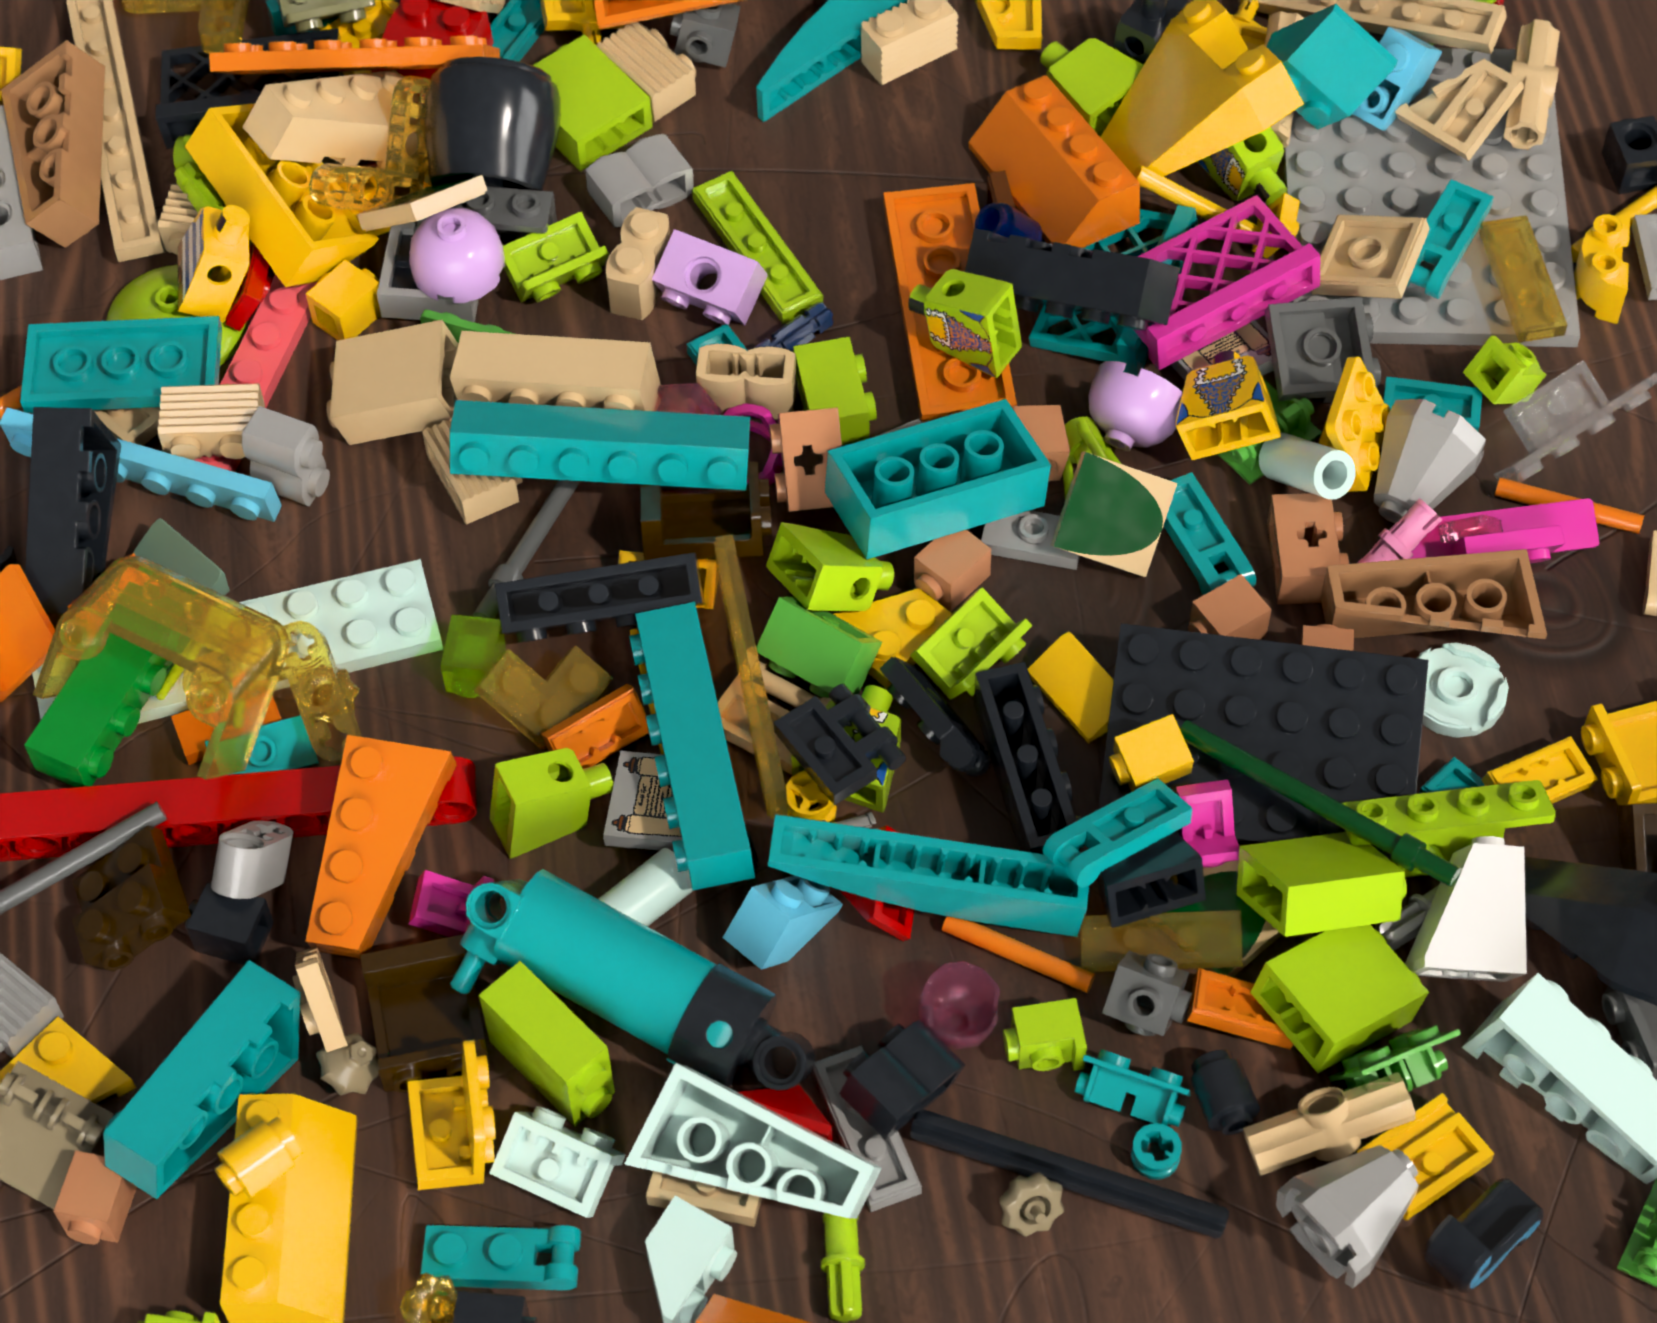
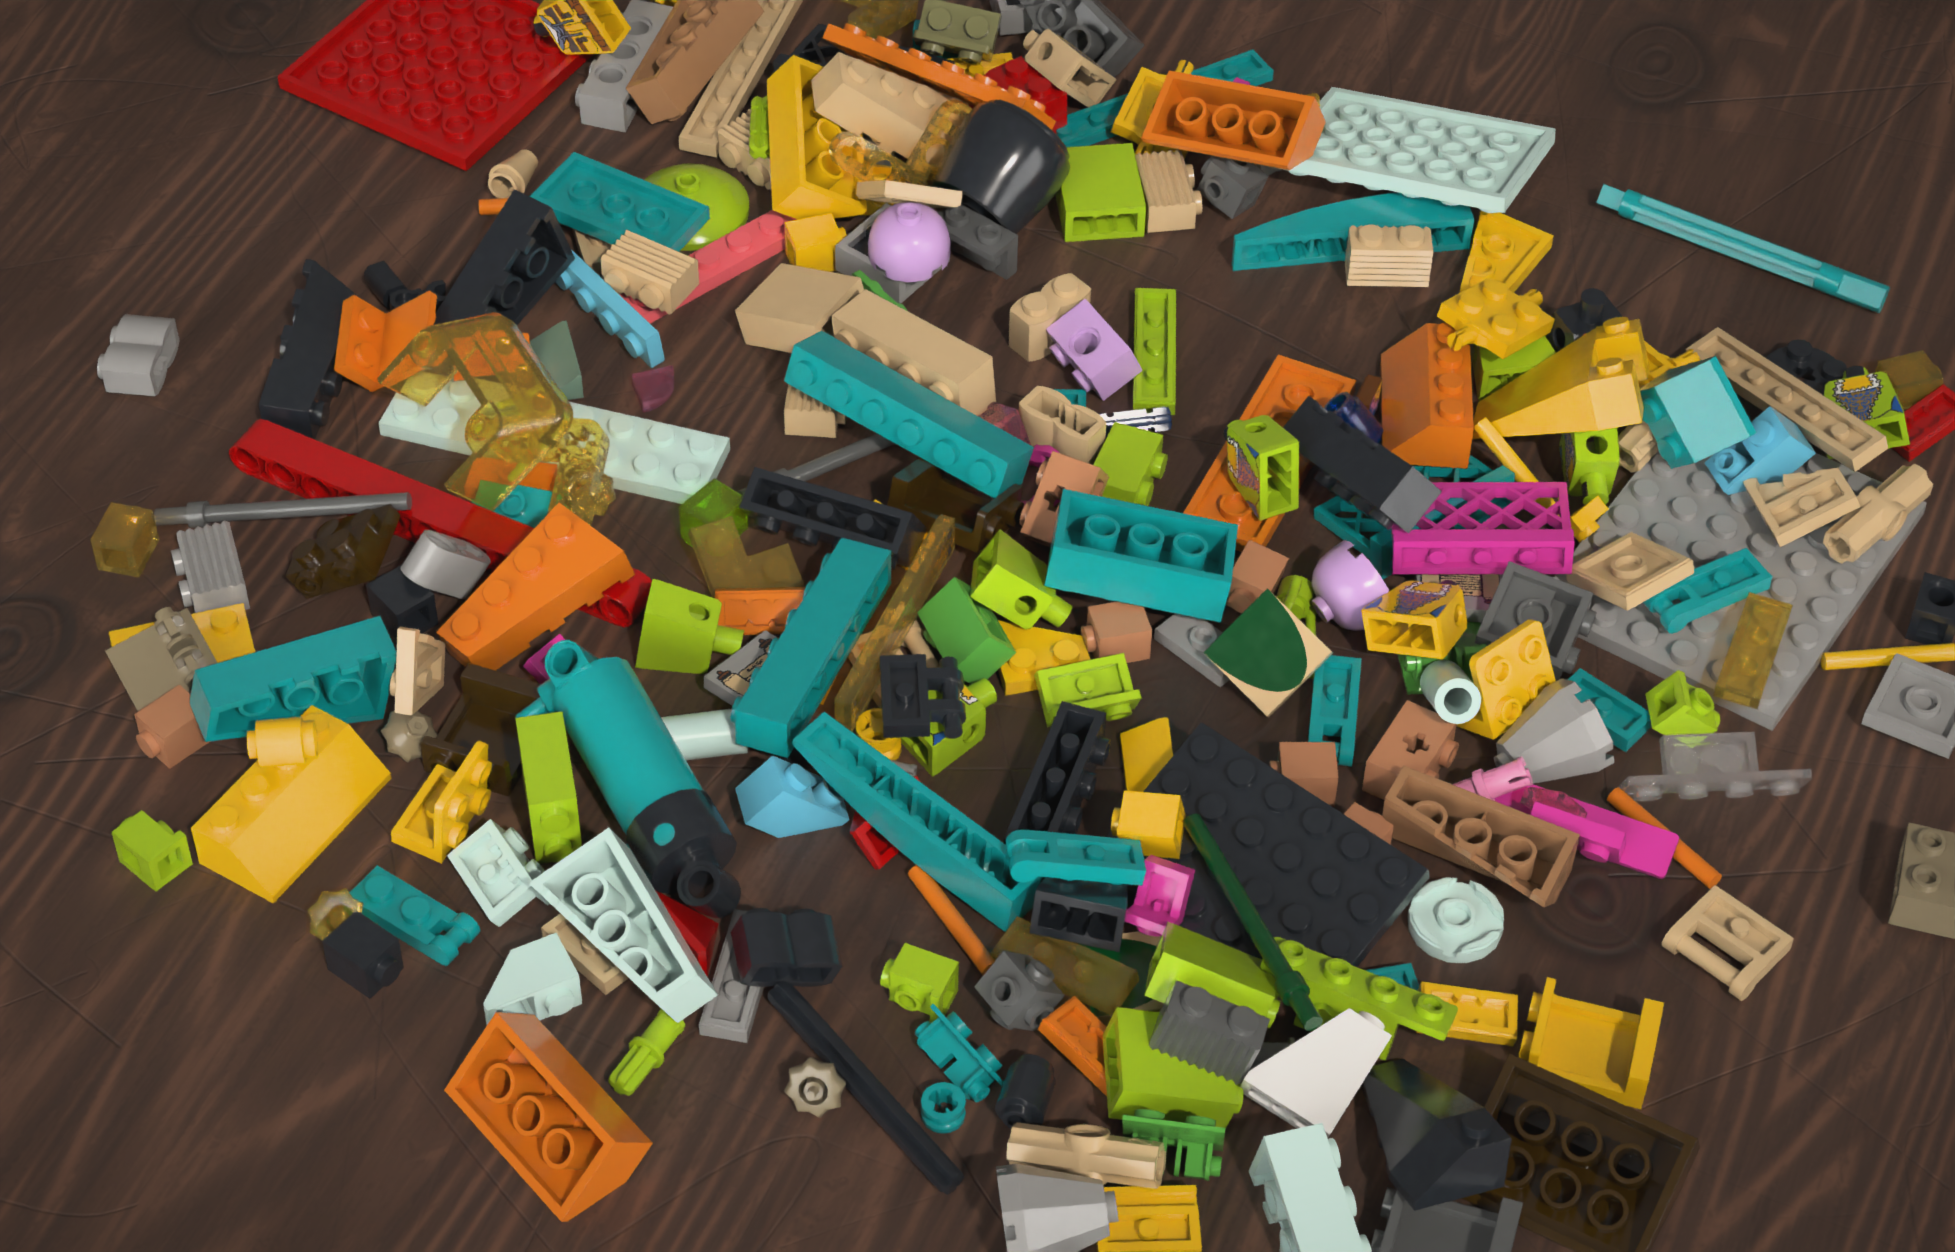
camera: 30 degrees right, 10 degrees down
(95, 712) = (413, 417): green brick -> none
(217, 241) = (743, 155): yellow torso -> none
(251, 291) = (753, 202): red plate -> none
(286, 455) = (682, 319): light grey brick -> none
(295, 542) = (653, 387): none -> clear pink tile
(546, 260) = (987, 284): lime bracket -> none
(645, 177) = (1102, 262): light grey brick -> none
(938, 719) = (1020, 724): black hinge -> none
(960, 1004) = (871, 924): clear pink hair -> none
(1070, 56) = (1495, 318): none -> yellow plate
(1368, 939) = (1209, 1032): none -> dark grey brick
(1599, 271) = (1837, 669): yellow cylinder -> none

